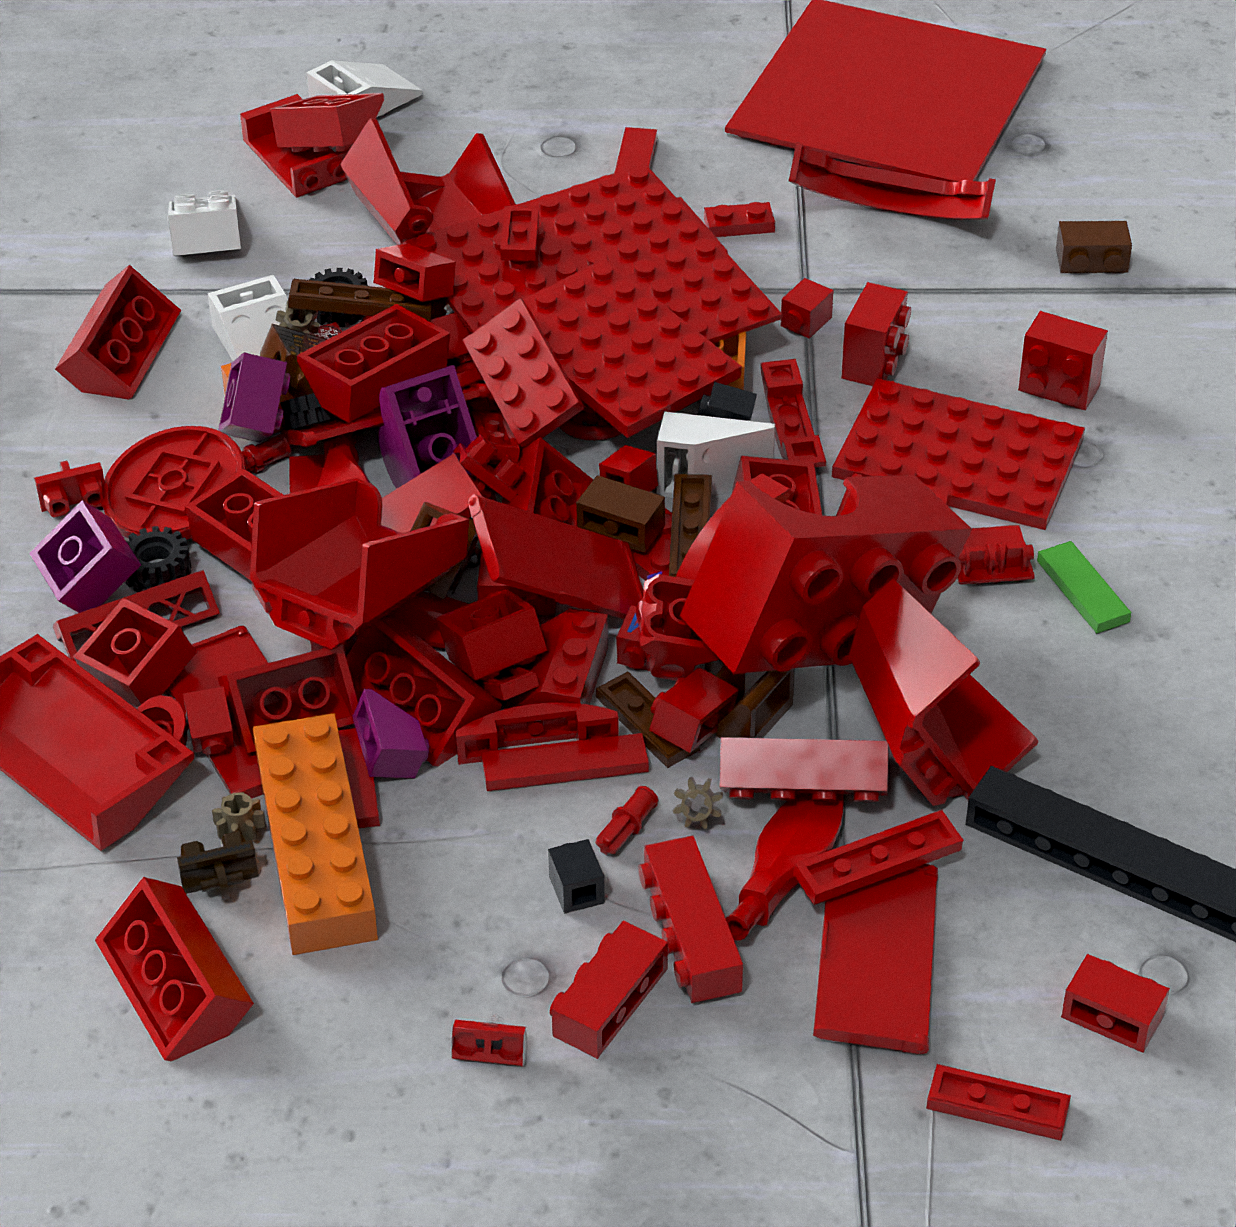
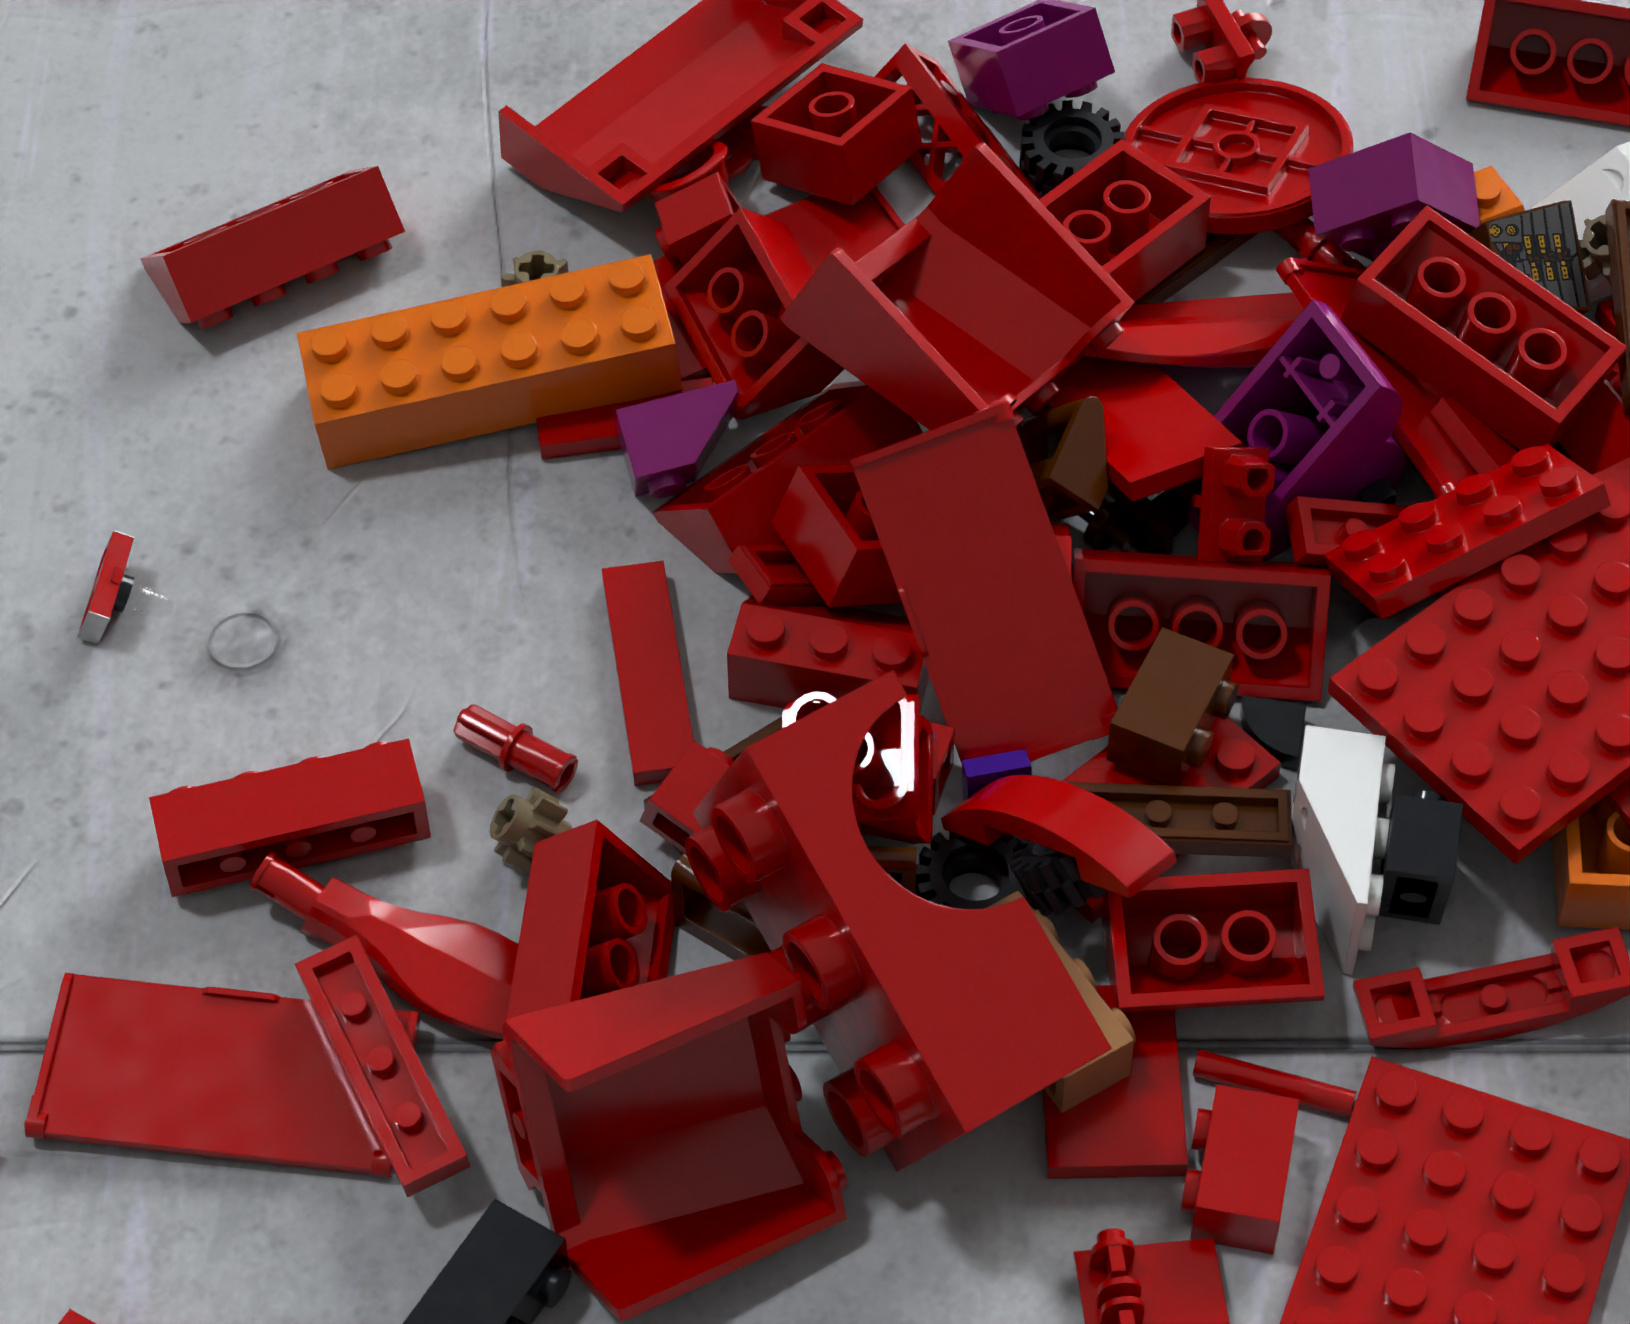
camera: 90 degrees right, 10 degrees up
(217, 867) = (450, 251): dark brown hips -> none
(534, 725) = (693, 571): red slope -> none
(576, 876) = (400, 678): black brick -> none
(609, 988) = (176, 717): red brick -> none
(631, 467) = (1272, 719): red brick -> none

